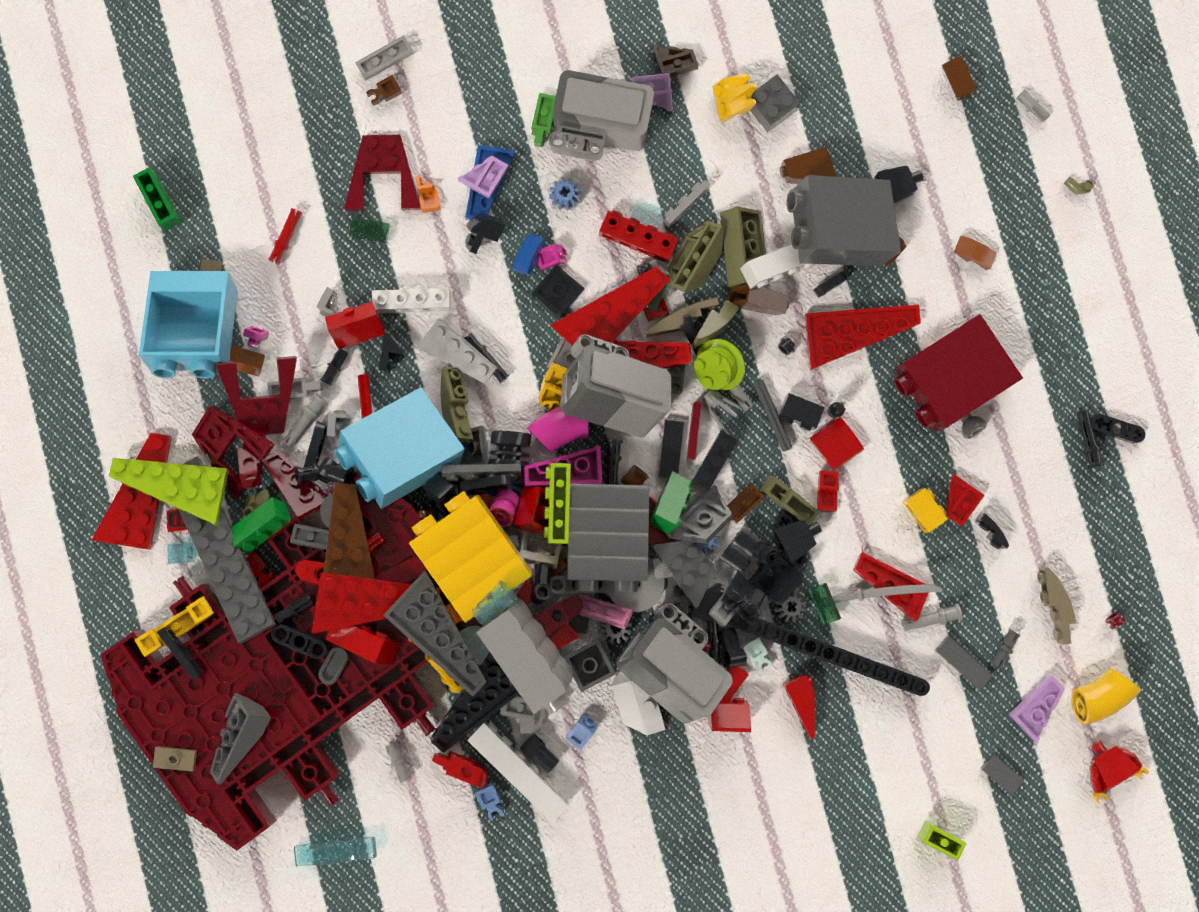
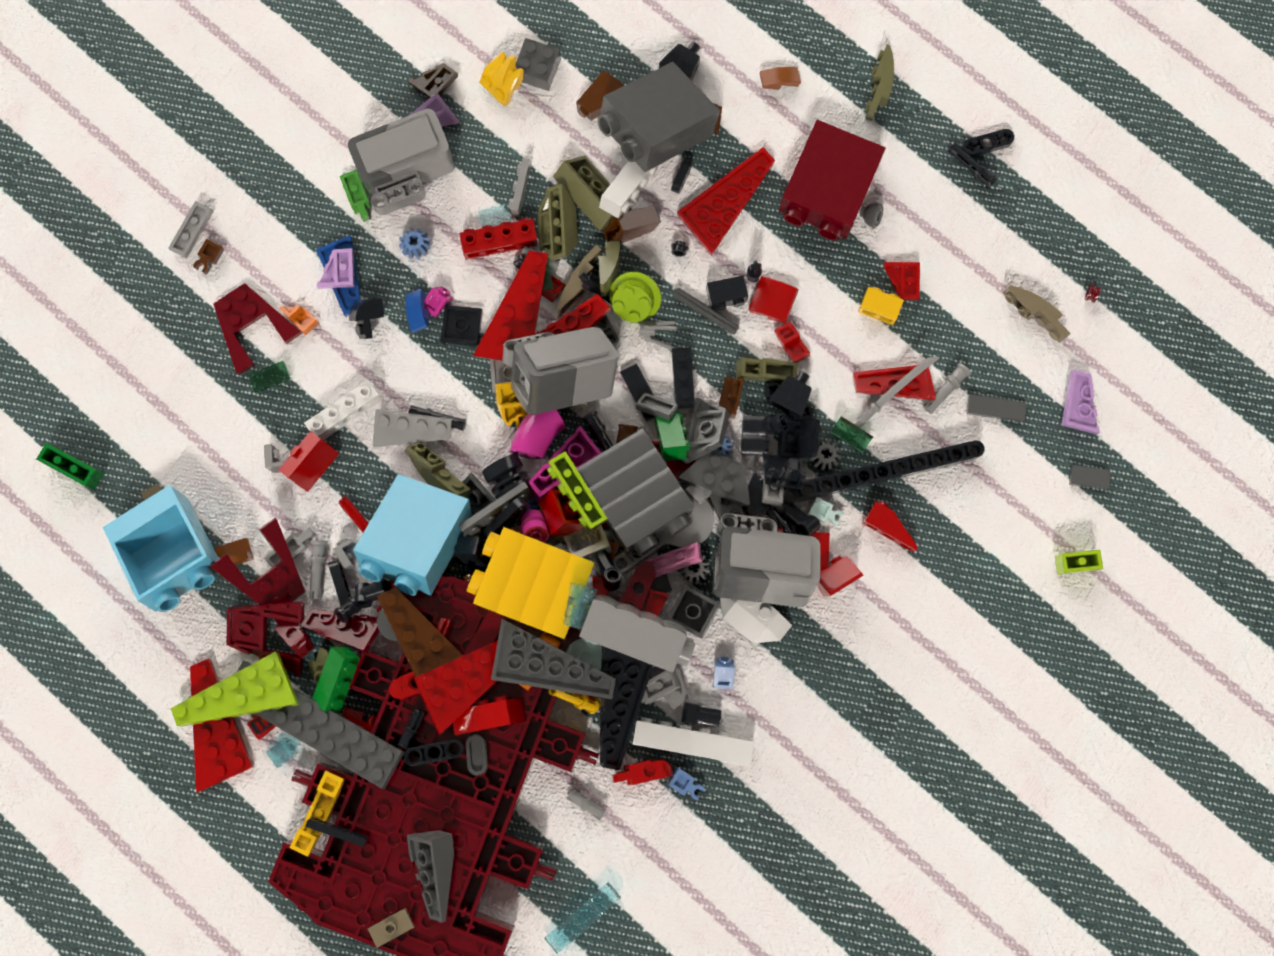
camera: 25 degrees left, 5 degrees down
(255, 336) = (228, 525): dark pink tile -> none
(281, 243) = (200, 428): red pin -> none
(309, 536) = (385, 660): dark grey tile -> none
(334, 366) = (313, 508): black axle -> none
(389, 348) = (351, 462): black slope -> none
(675, 471) = (656, 406): none -> dark grey tile
(693, 432) = (650, 365): dark red tile -> none
(741, 397) = (671, 313): light grey pin -> none
(996, 536) = (951, 288): black slope -> none
(1005, 648) = (1021, 374): dark grey pin -> none
(1063, 314) = (882, 81): none -> olive slope
(1103, 697) = (1125, 359): yellow brick -> none
(1112, 768) = (1173, 412): red torso -> none

